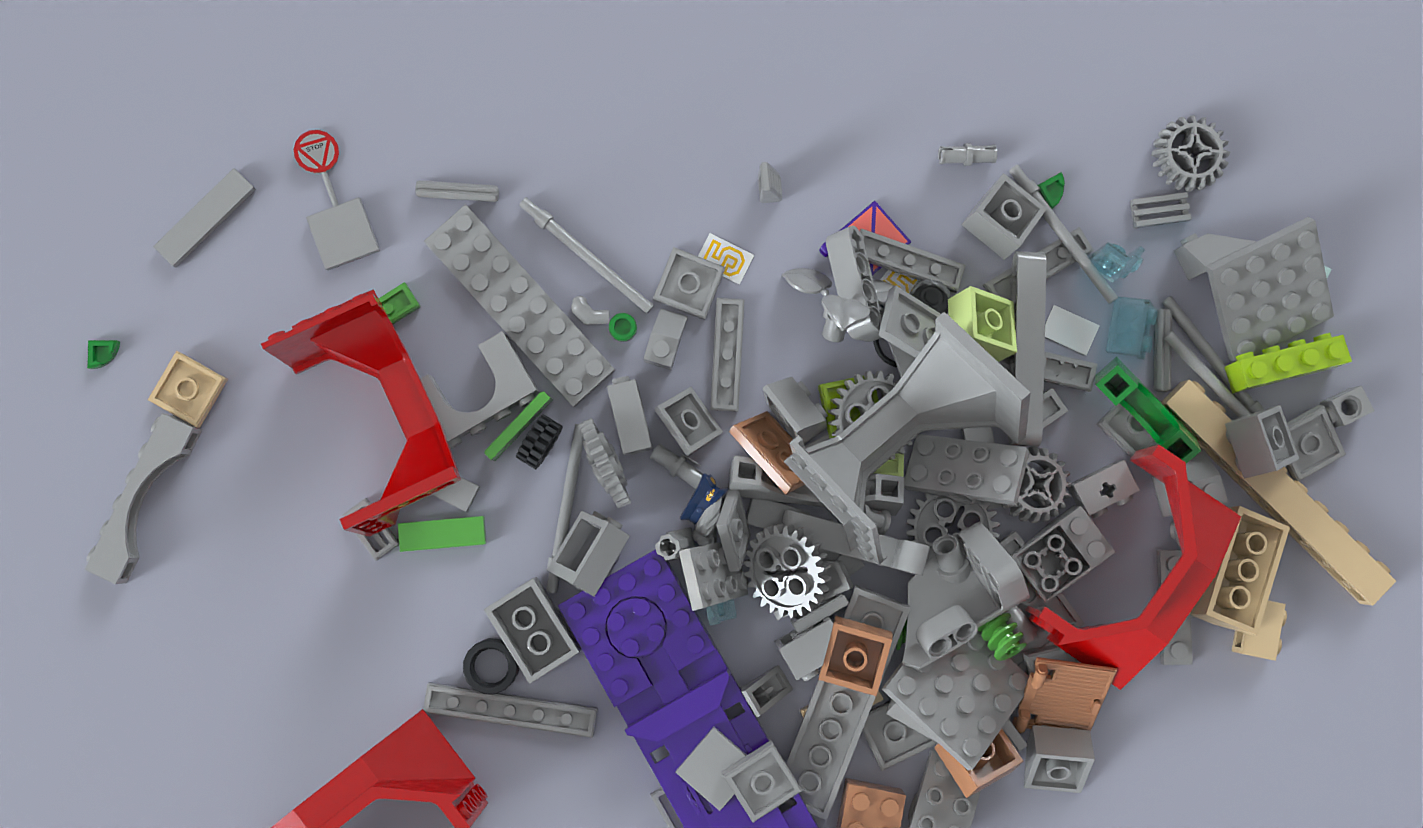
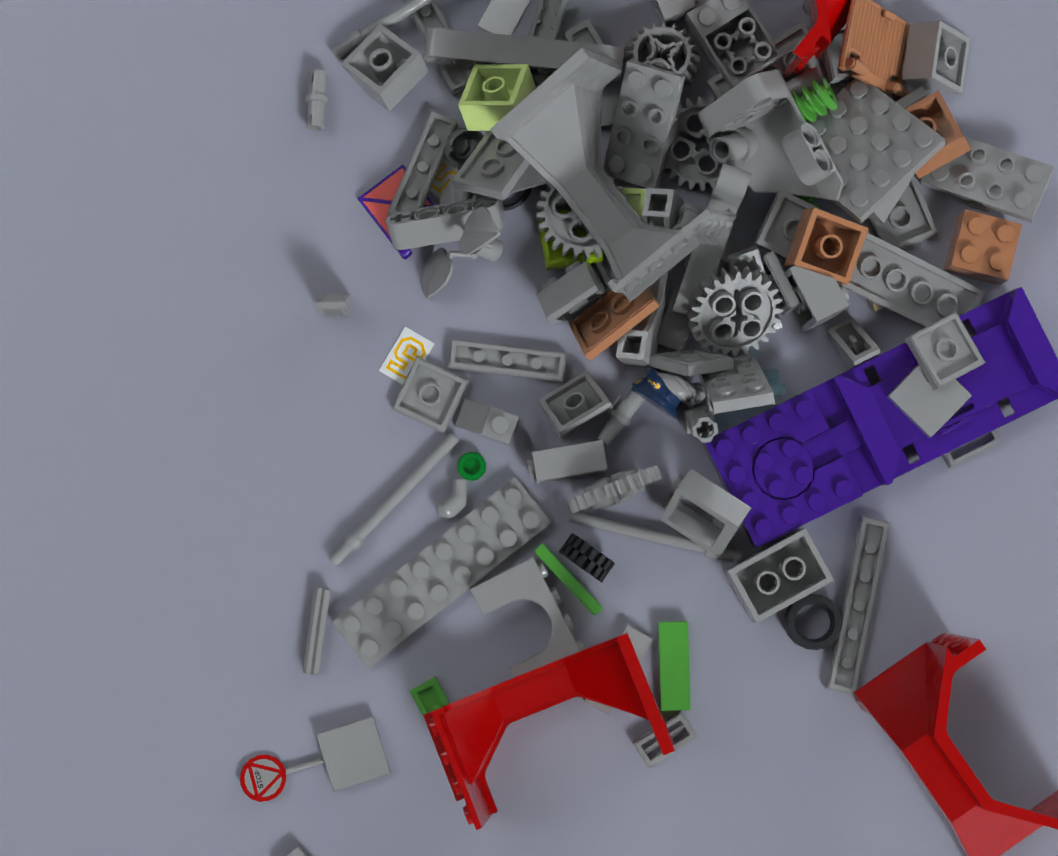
camera: 80 degrees left, 0 degrees up
(1052, 189) = (359, 16): green tile -> none

